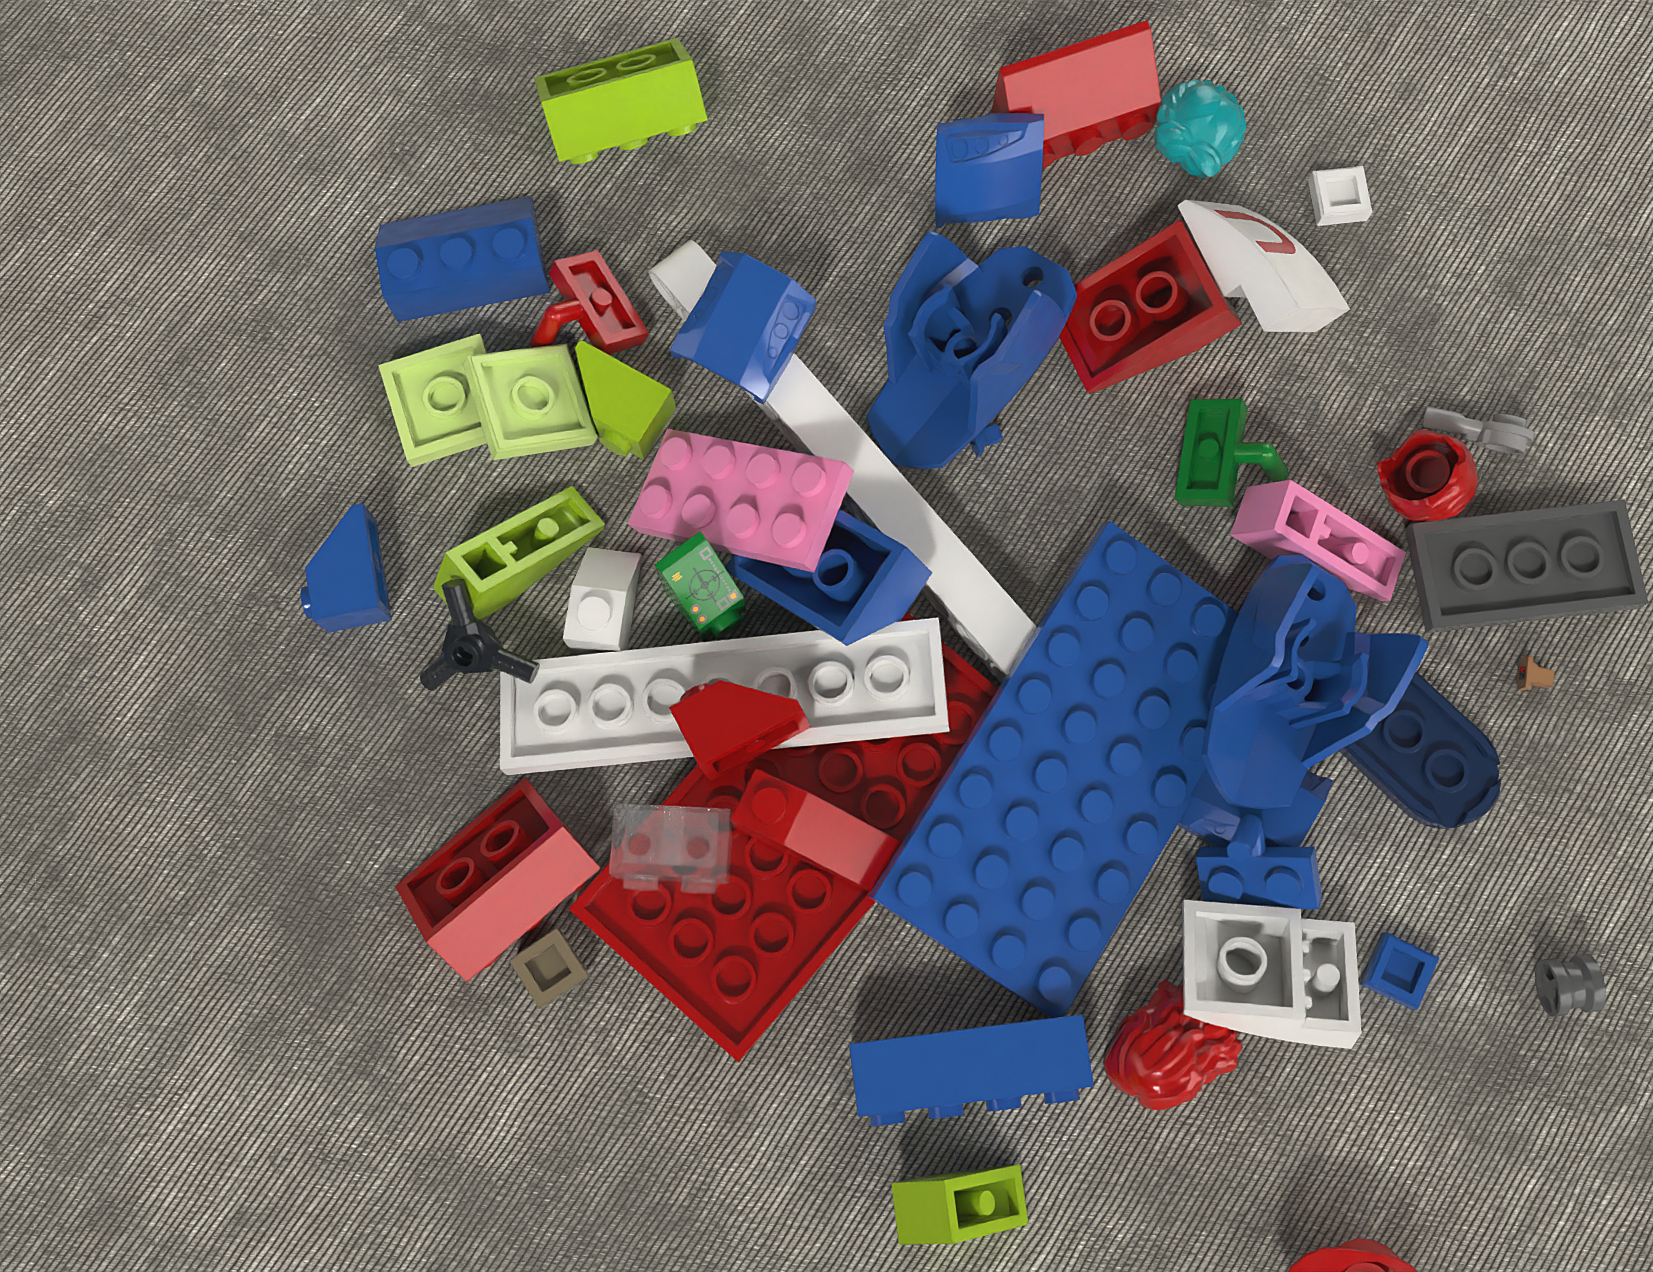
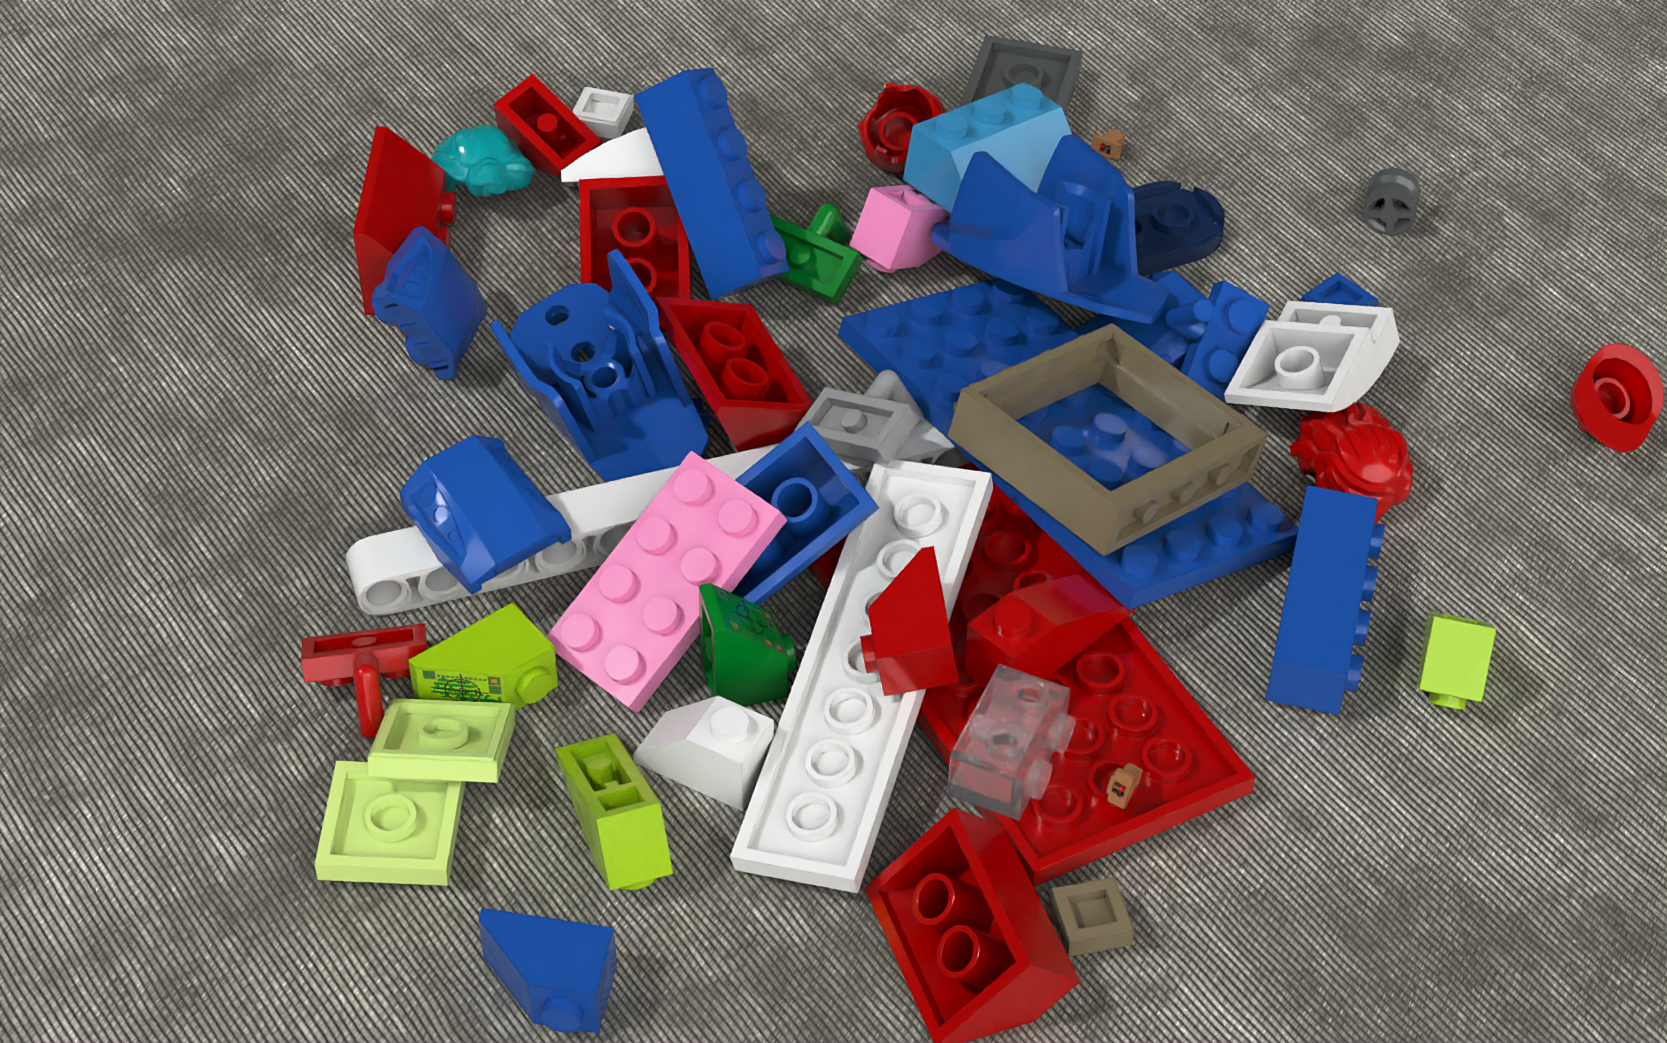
camera: 70 degrees left, 30 degrees down
(461, 259) = (230, 757): blue slope -> none
(472, 645) = (702, 861): black piece -> none
(621, 101) = (143, 566): lime slope -> none
(673, 953) = (1122, 784): none -> medium nougat piece
(968, 584) = (866, 424): none -> light grey plate
(1003, 452) = (736, 369): none -> red slope
(1109, 734) = (1221, 439): none -> dark tan window
(1217, 335) = (712, 182): none -> blue brick
(1263, 160) = (543, 126): none -> red slope
(1406, 575) = (1012, 126): none -> dark azure slope
(1502, 434) = (882, 75): light grey plate -> none

